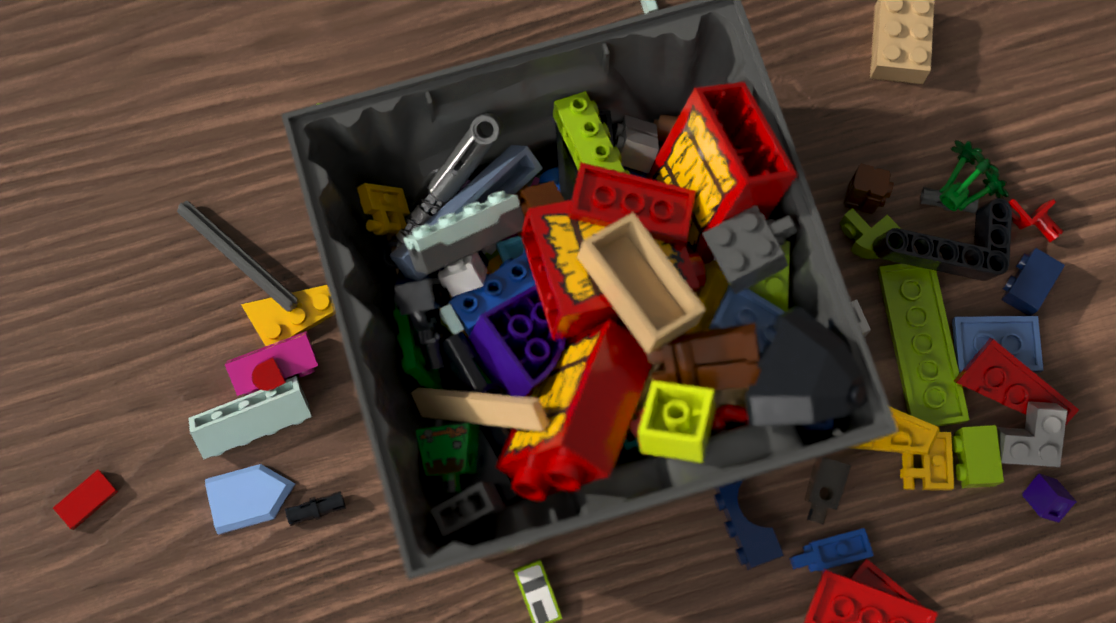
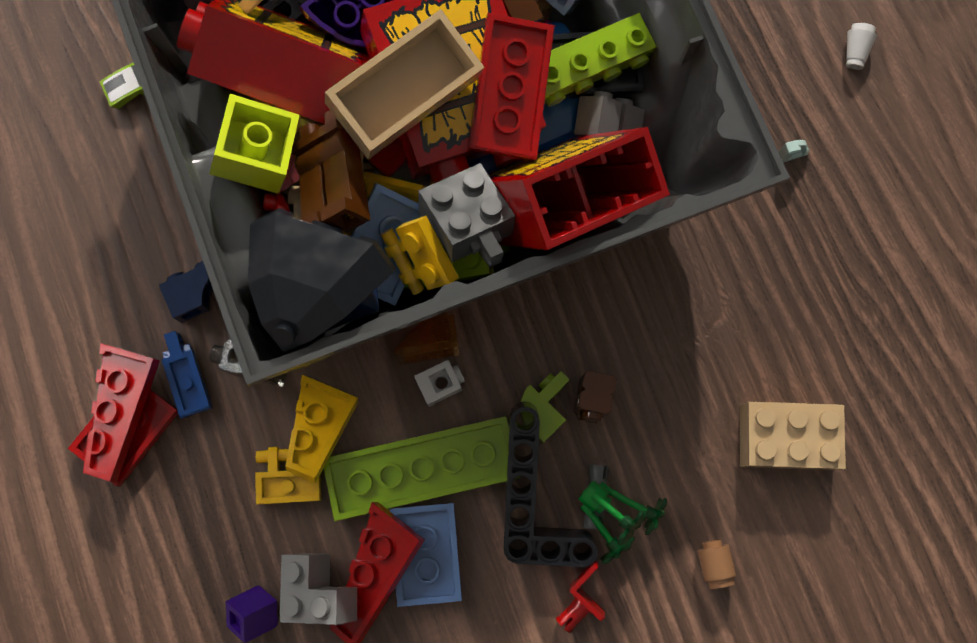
camera: 85 degrees right, 5 degrees up
(776, 286) = (425, 251): none -> yellow plate
(978, 456) = (293, 532): lime brick -> none
(1007, 108) = (717, 564): none -> medium nougat brick
(1032, 282) = (503, 595): dark blue brick -> none

